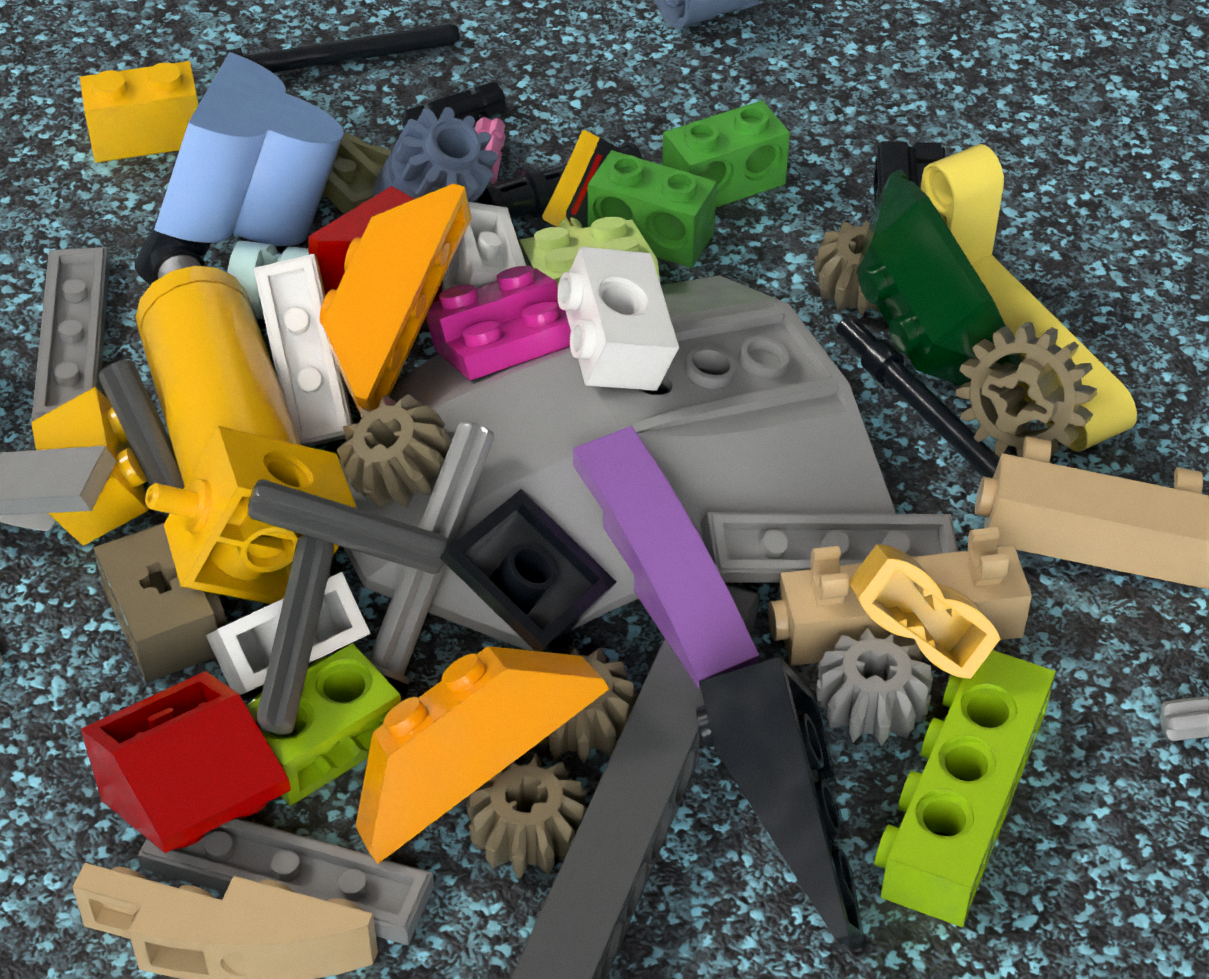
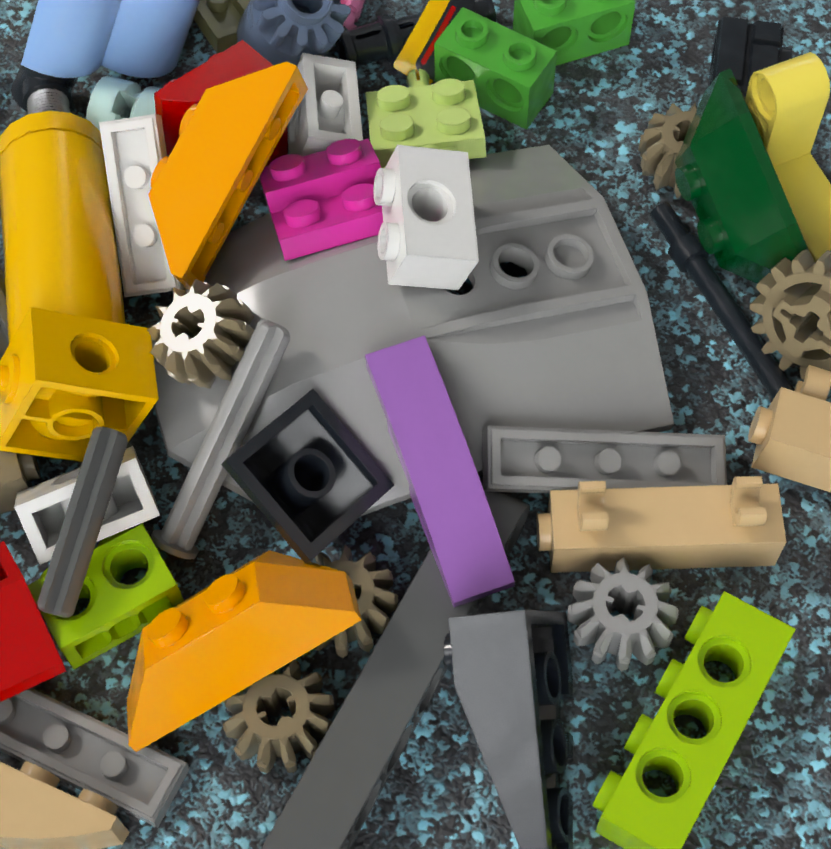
camera: 10 degrees right, 15 degrees up
(347, 526) = (138, 422): dark grey axle -> none
(911, 605) = (678, 563): yellow brick -> none

